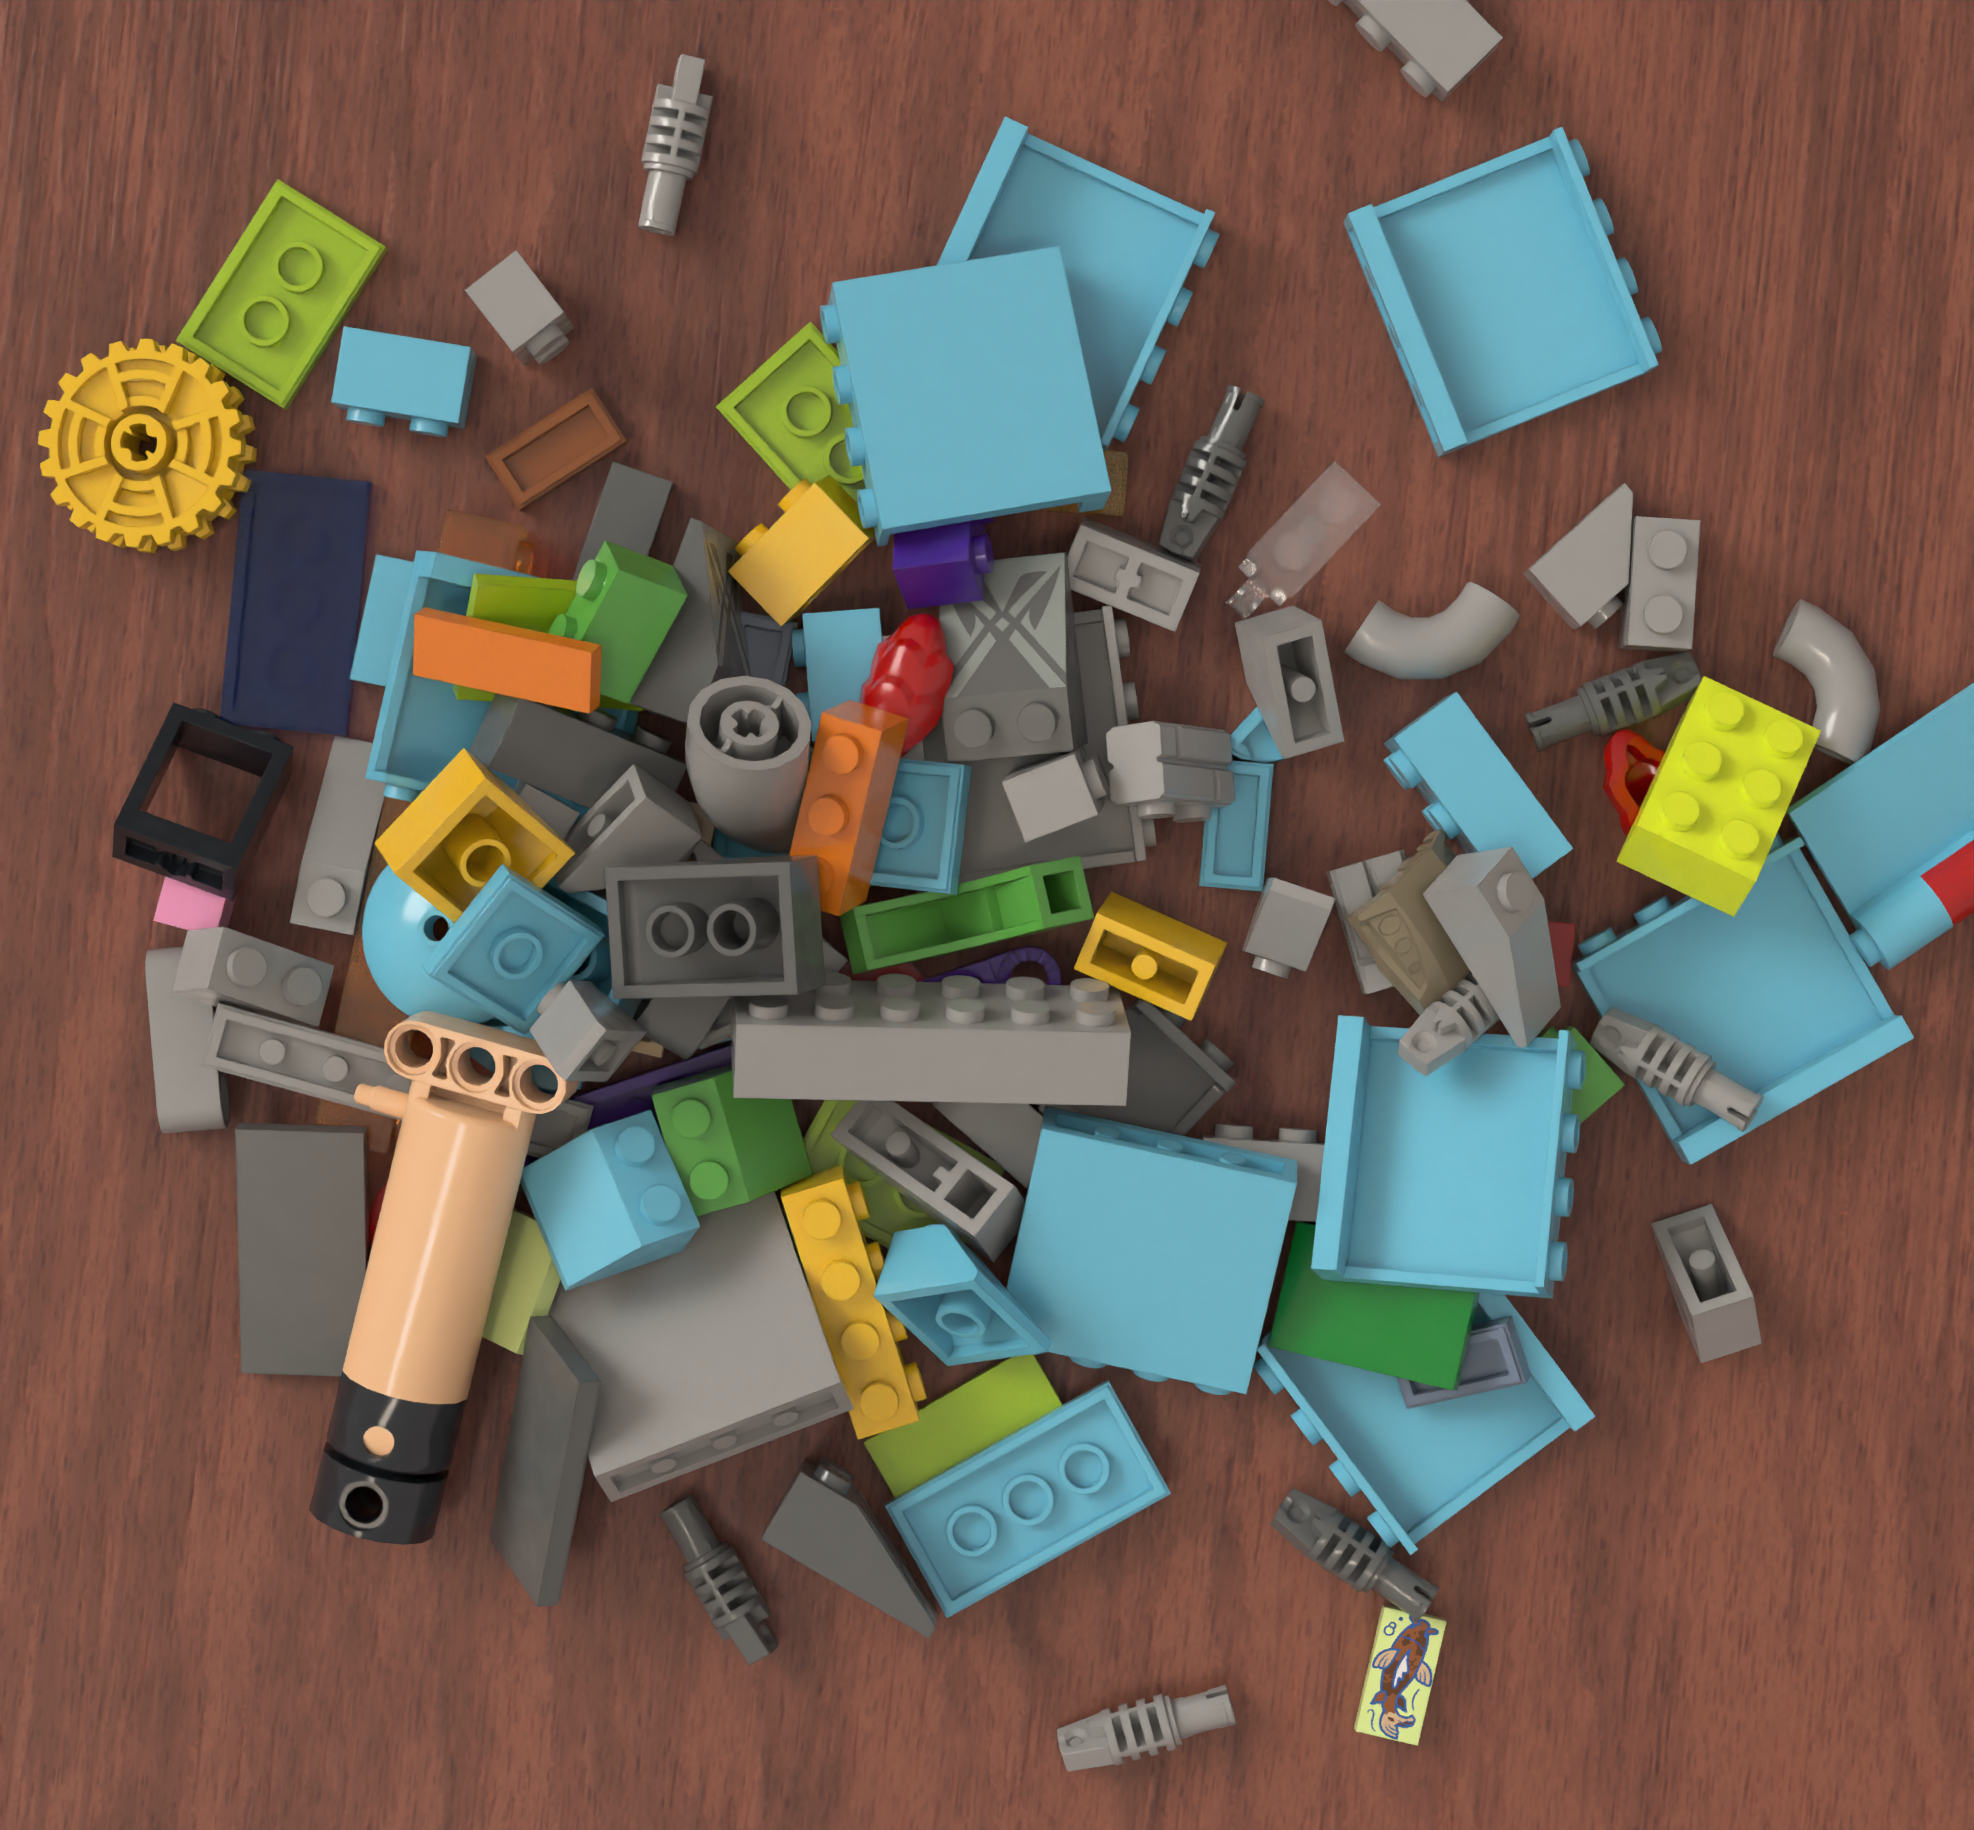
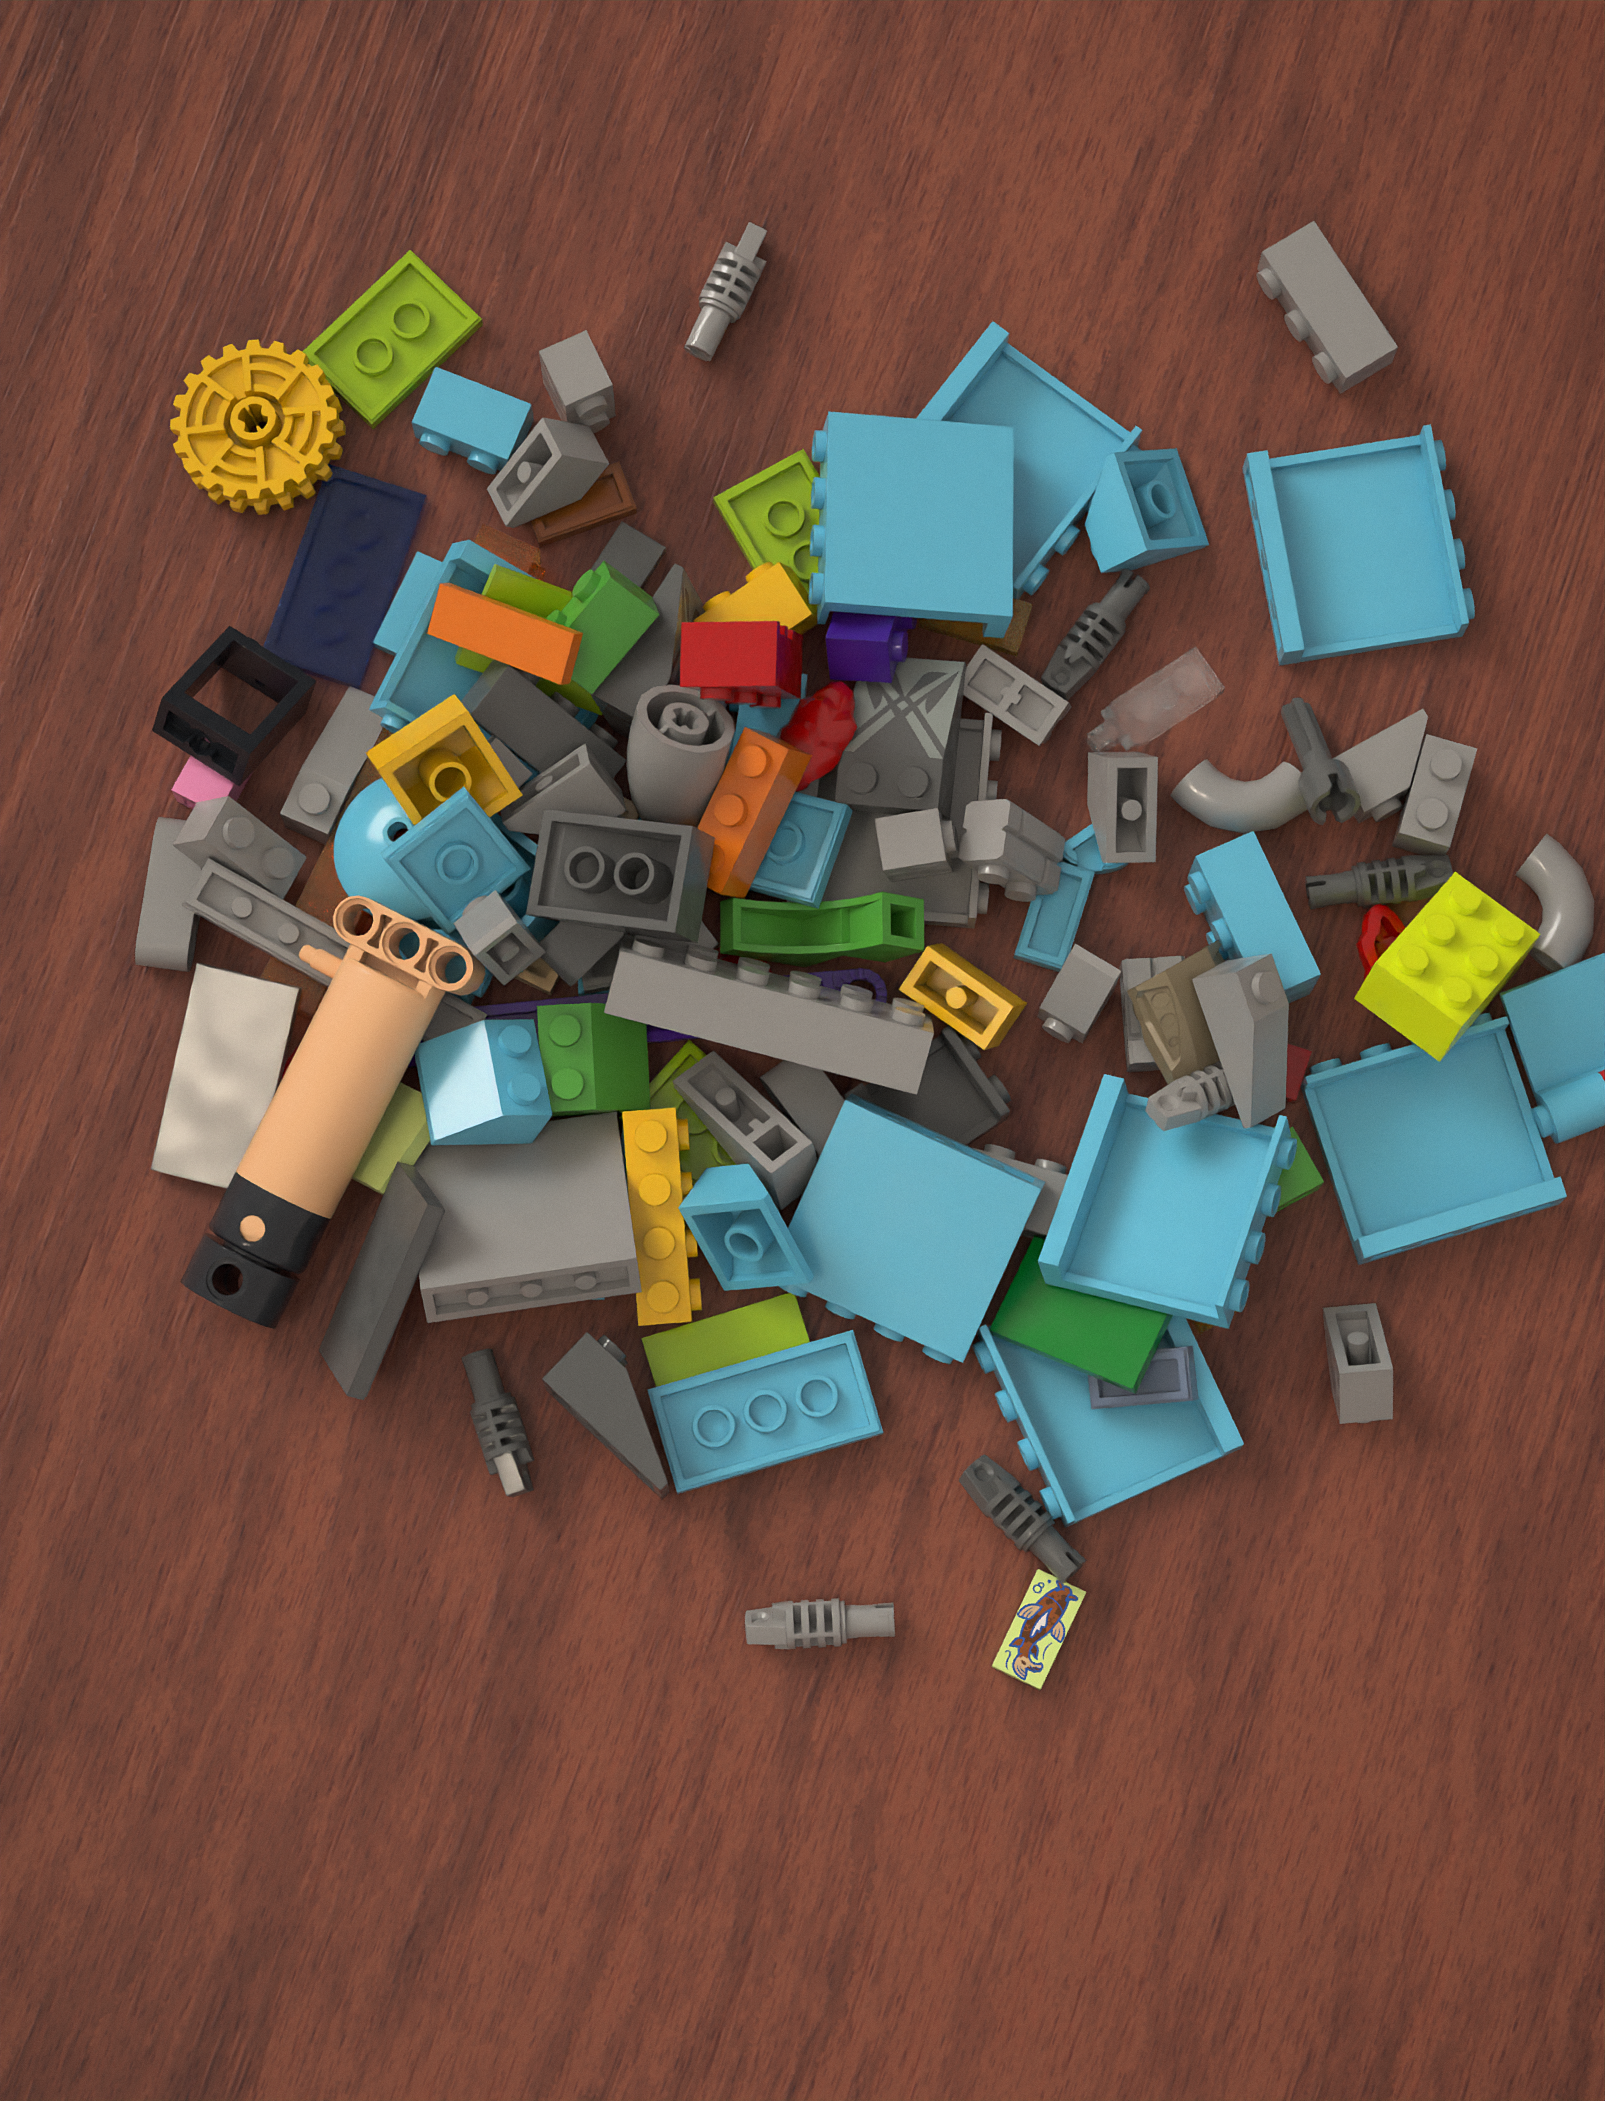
camera: 10 degrees right, 10 degrees down
(510, 426) = (547, 471): none -> light grey slope
(800, 634) = (742, 662): none -> red wedge
(1237, 309) = (1142, 511): none -> medium azure slope
(1525, 601) = (1324, 780): none -> dark grey piece
(1673, 1067) = (1366, 1177): light grey hinge -> none

